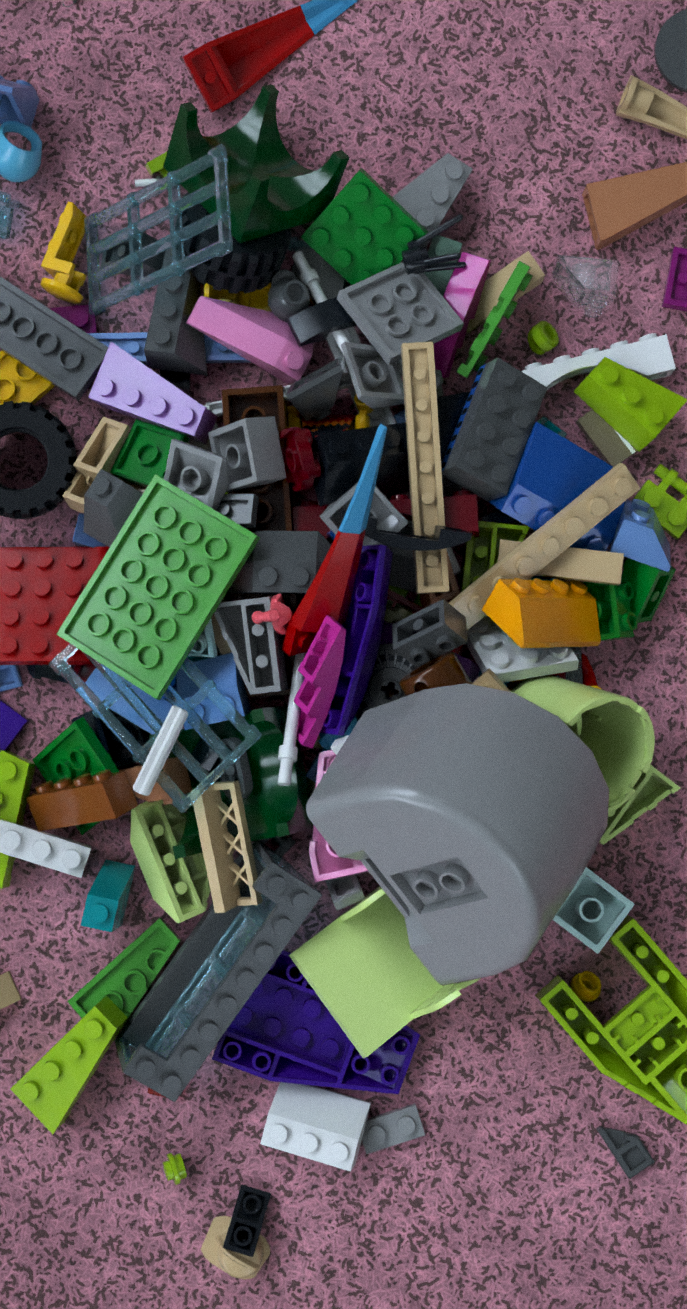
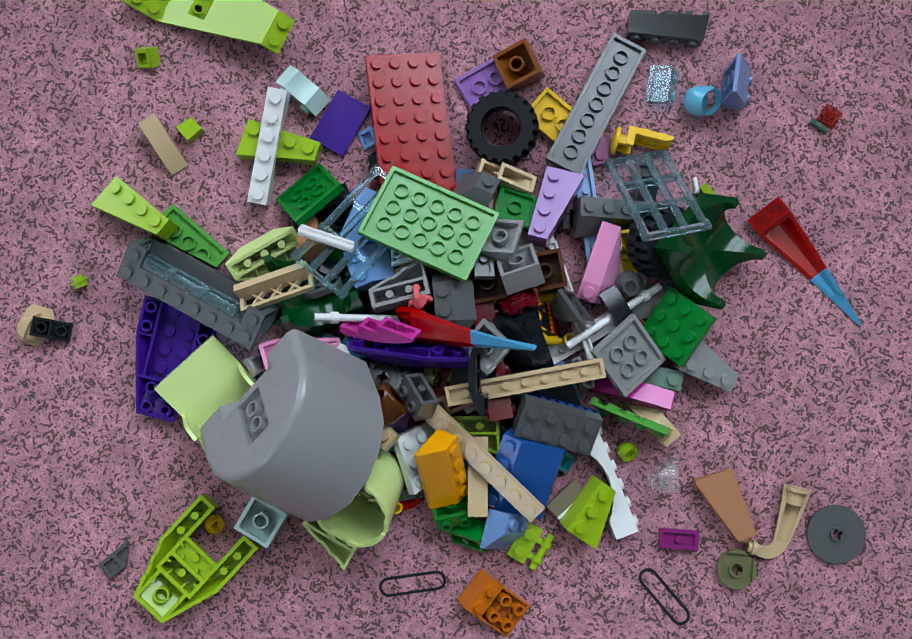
camera: 85 degrees right, 0 degrees up
(81, 800) = (293, 195): dark orange brick -> none
(108, 896) = (237, 219): teal slope -> none
(316, 1124) = (112, 365): white slope -> none
(372, 378) = (580, 341): light grey slope -> none
(392, 1128) = (115, 411): light grey plate -> none
(418, 260) = (663, 362): black plant -> none

